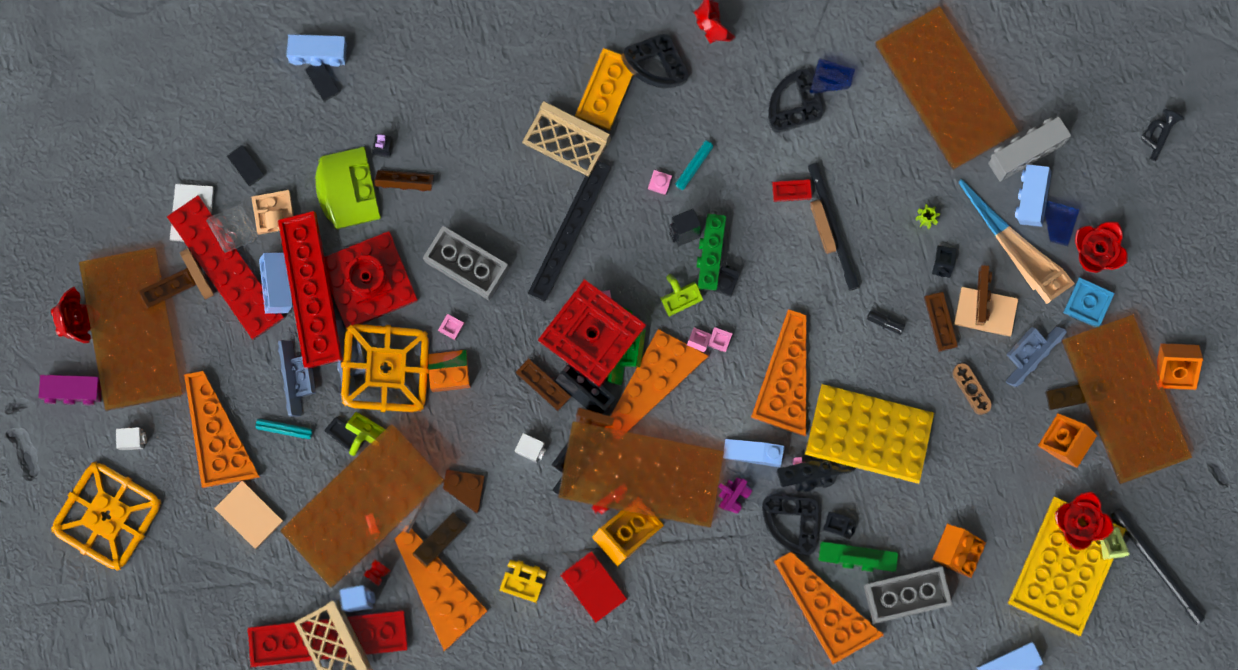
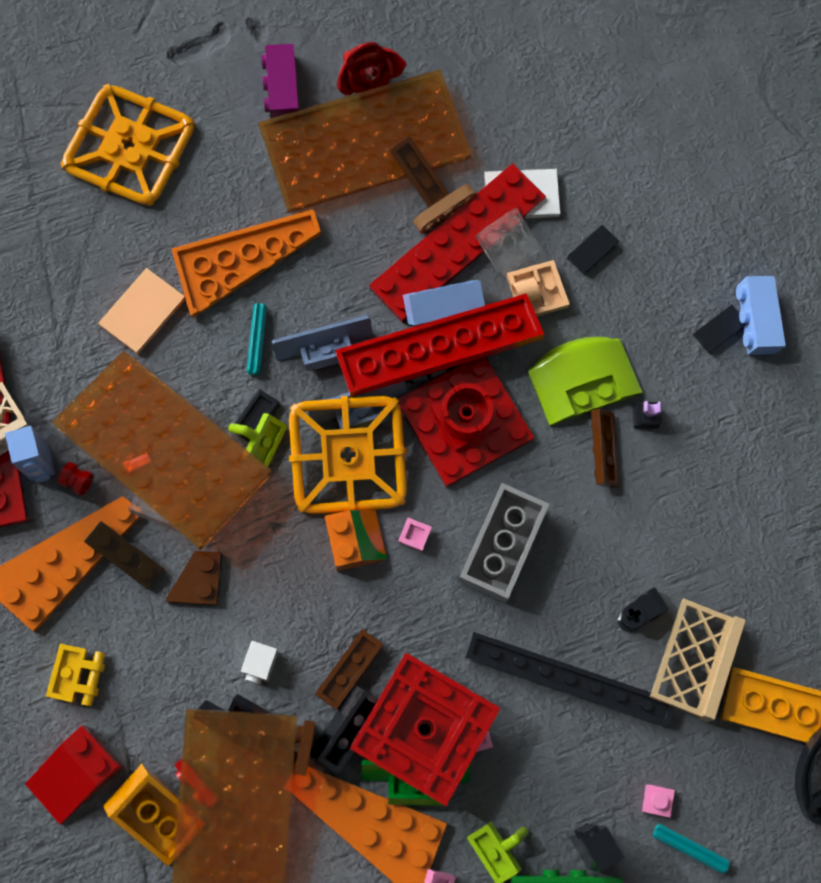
camera: 75 degrees right, 5 degrees down
(130, 438) = (225, 157): white brick -> none
(526, 169) = (644, 608): none -> black piece

